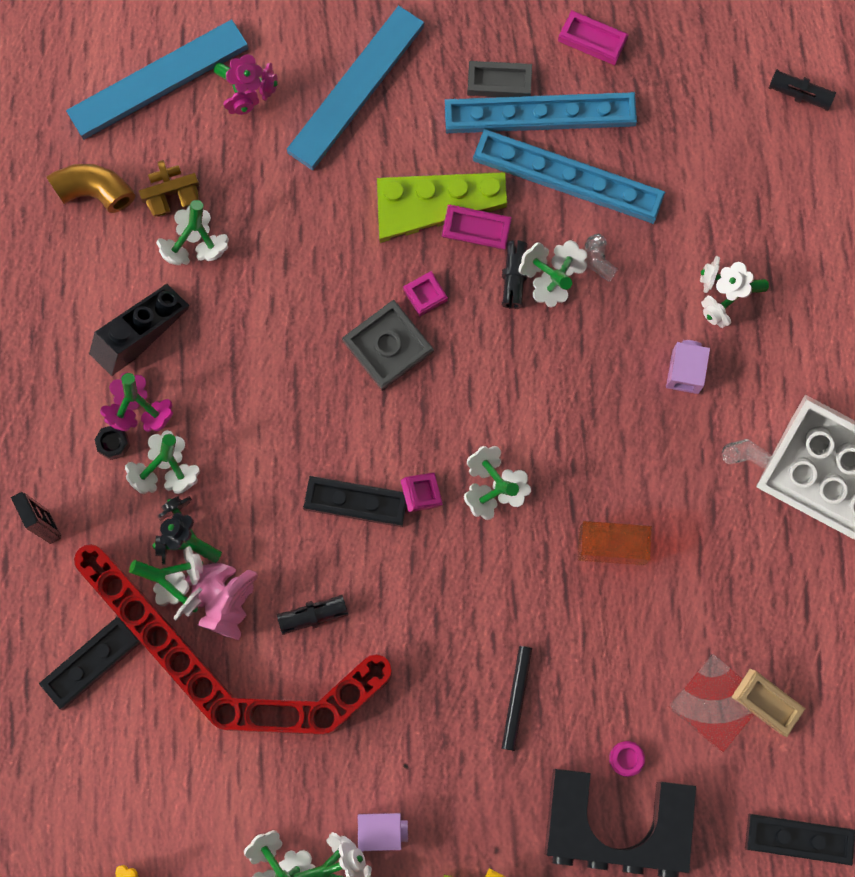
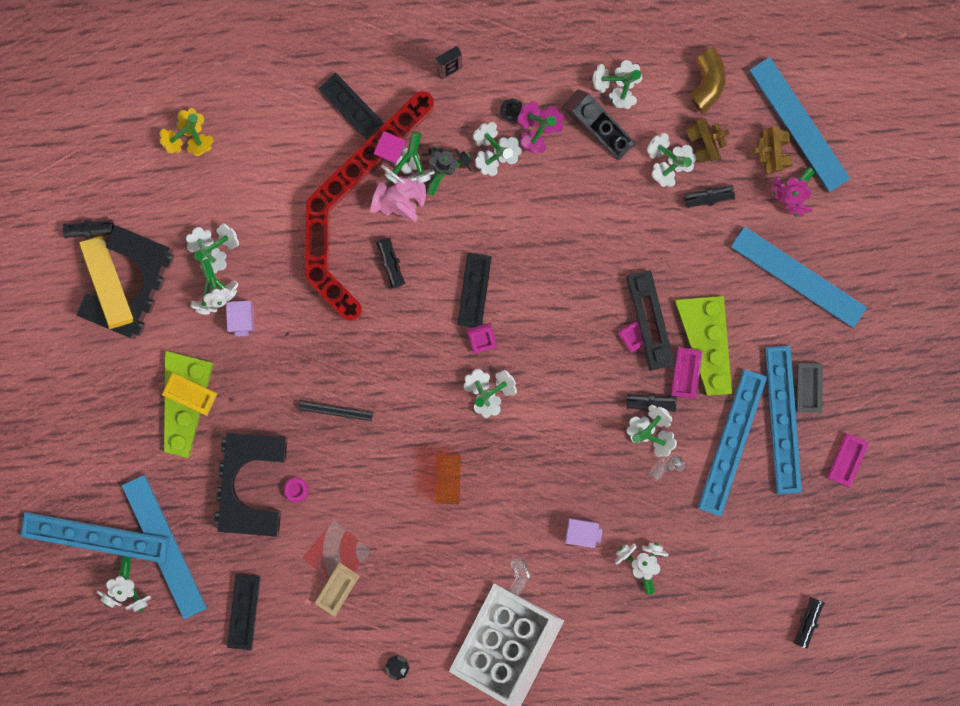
camera: 85 degrees right, 10 degrees up
(76, 292) = (626, 76): none -> white plant
(150, 606) = (390, 147): none -> dark pink tile
(188, 110) = (770, 150): none -> pearl gold hips
(244, 192) = (709, 196): none -> black pin
(387, 345) = (593, 309): dark grey tile -> none
(451, 260) = (641, 286): none -> black container

